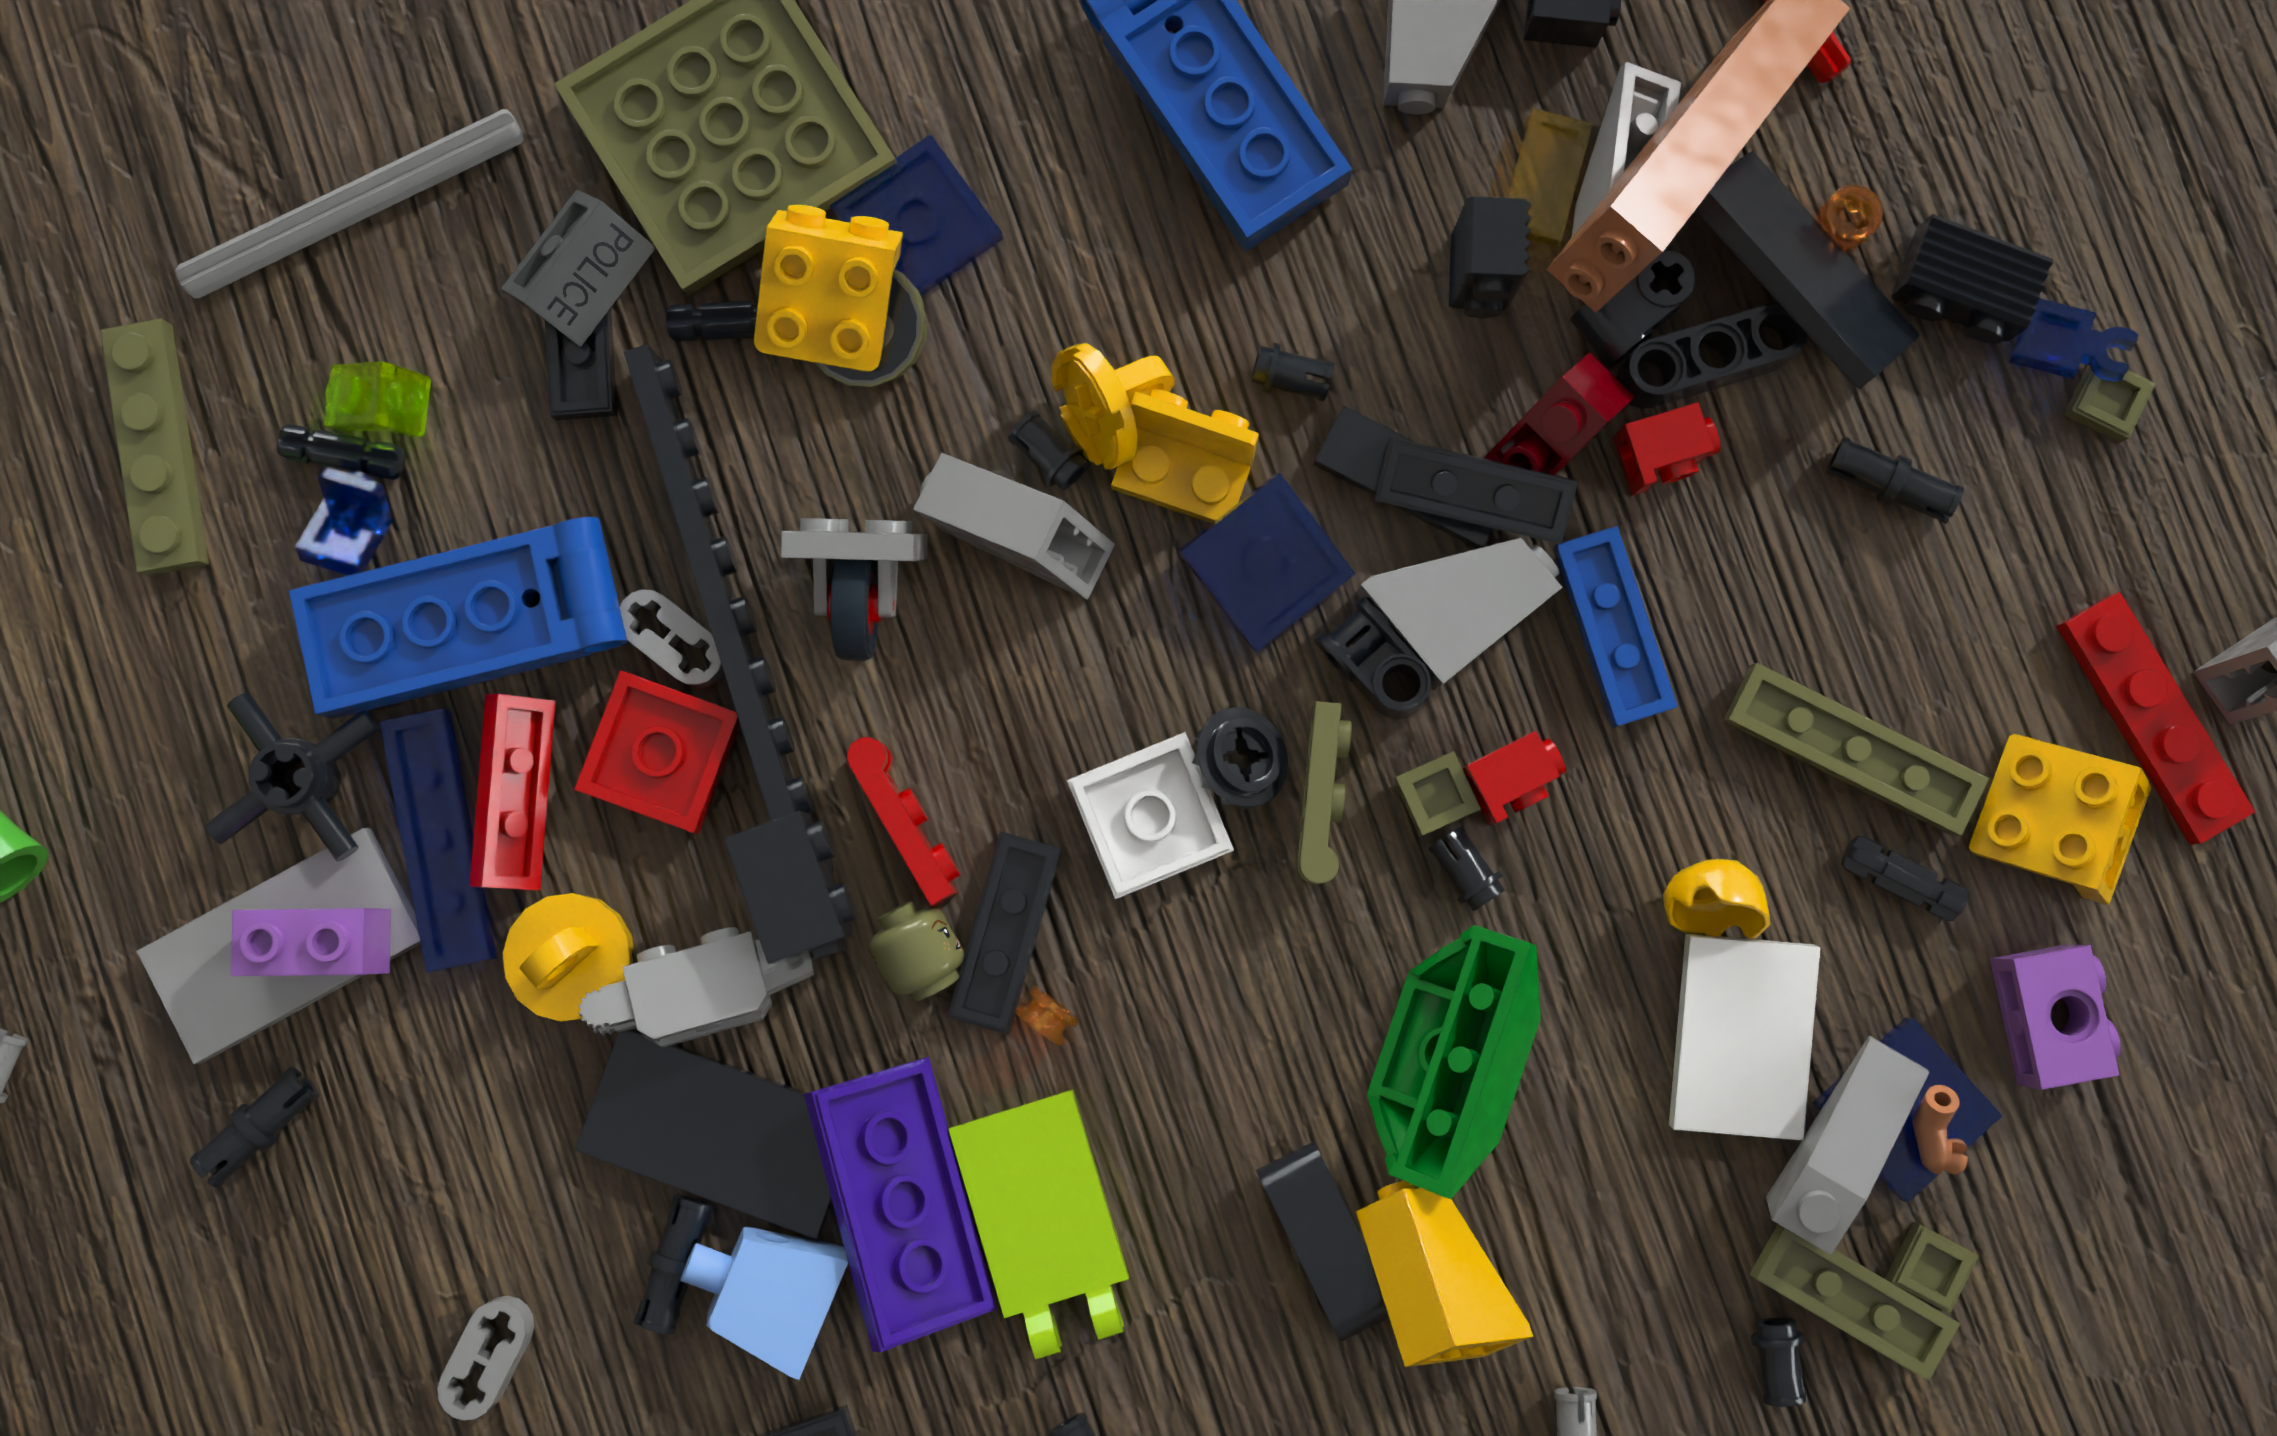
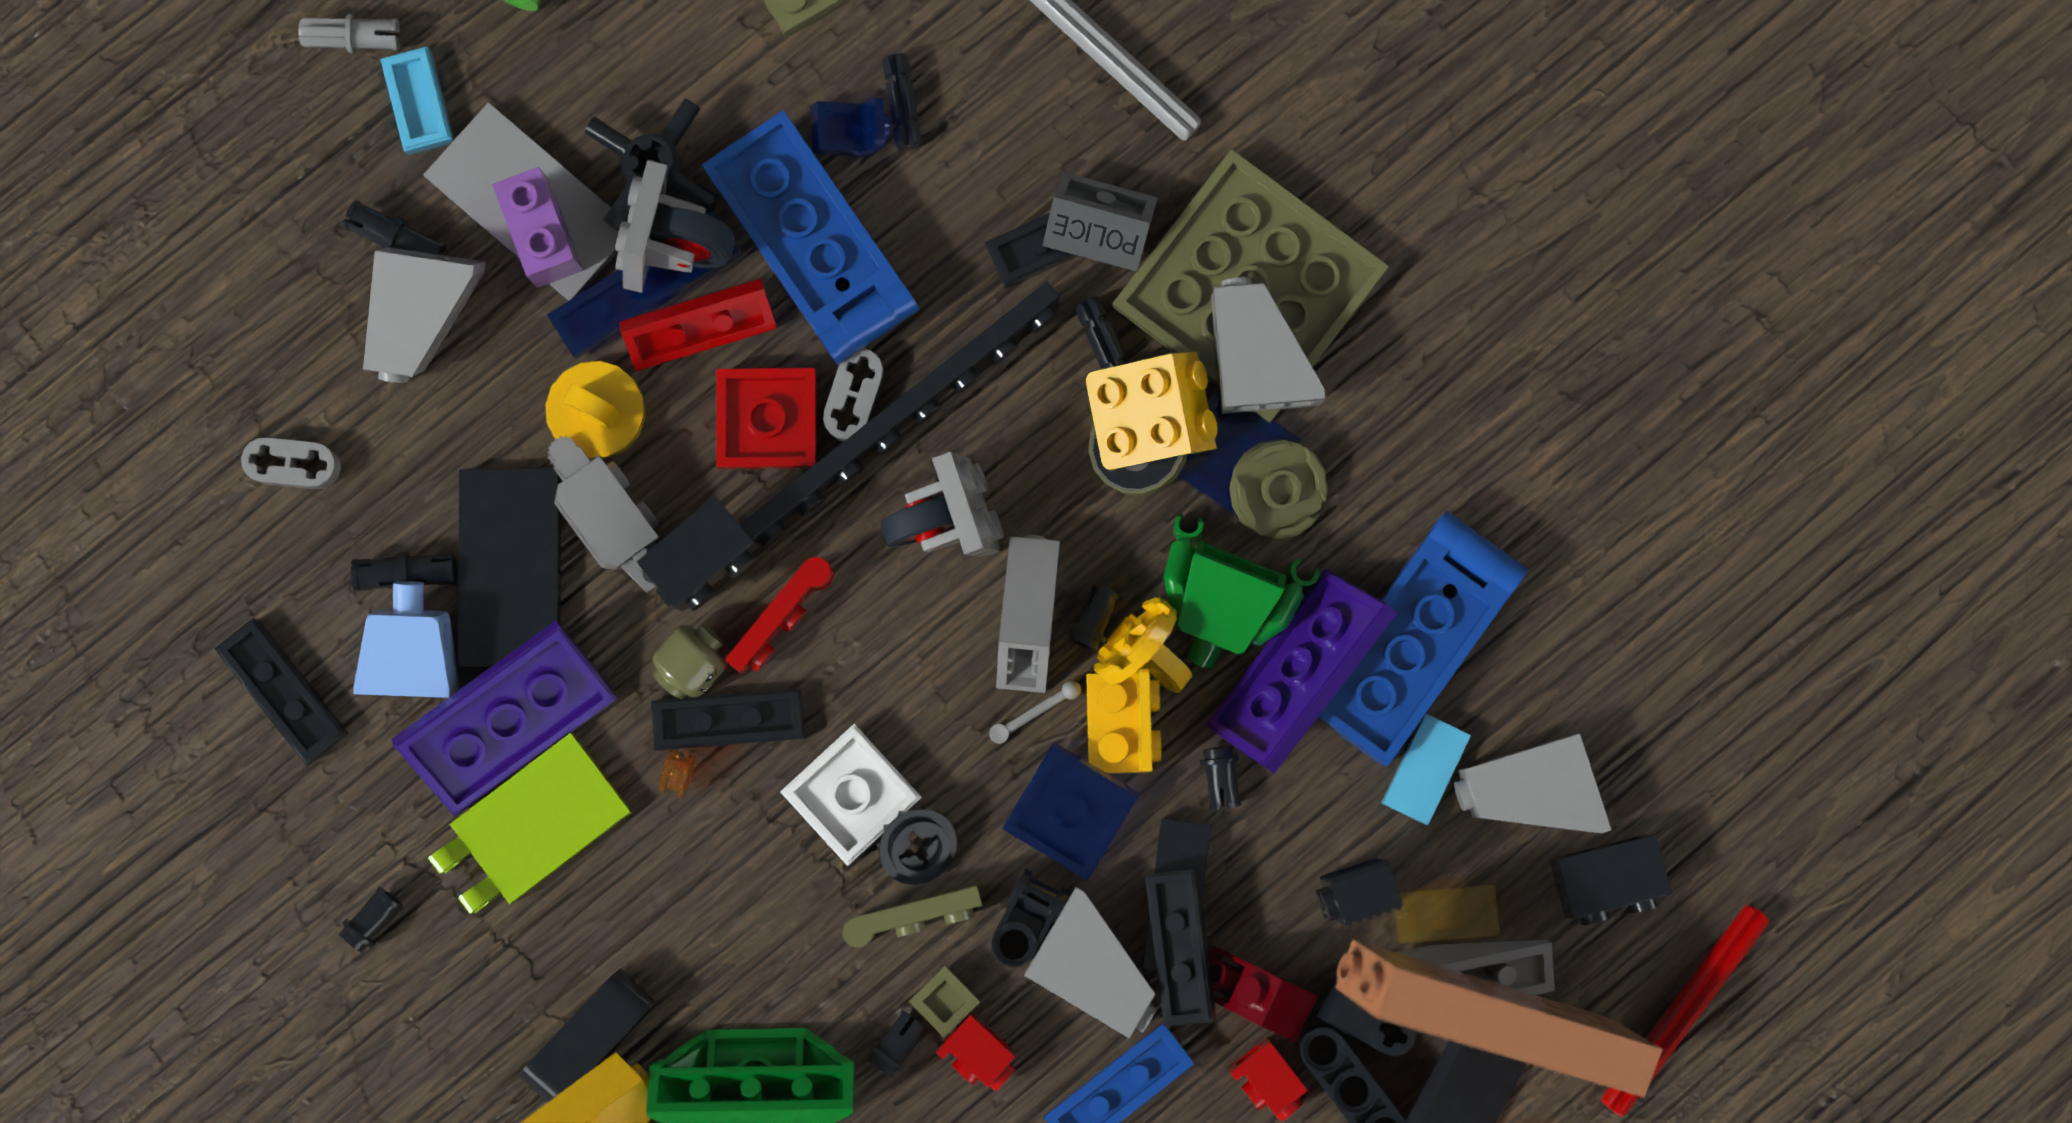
camera: 65 degrees right, 0 degrees up
(100, 1039) = (417, 100): none -> medium azure tile
(352, 1133) = (413, 308): none -> light grey slope
(377, 398) = (949, 112): clear neon green bracket -> none
(378, 780) = (667, 232): none -> plate
(807, 134) = (1257, 352): none -> light grey slope
(977, 180) = (1278, 488): none -> olive tile
(1082, 283) = (1227, 597): none -> green torso
(1142, 614) = (1000, 733): none -> light grey hinge
(1201, 228) = (1301, 670): none -> dark purple tile
(1372, 137) = (1425, 769): none -> medium azure tile

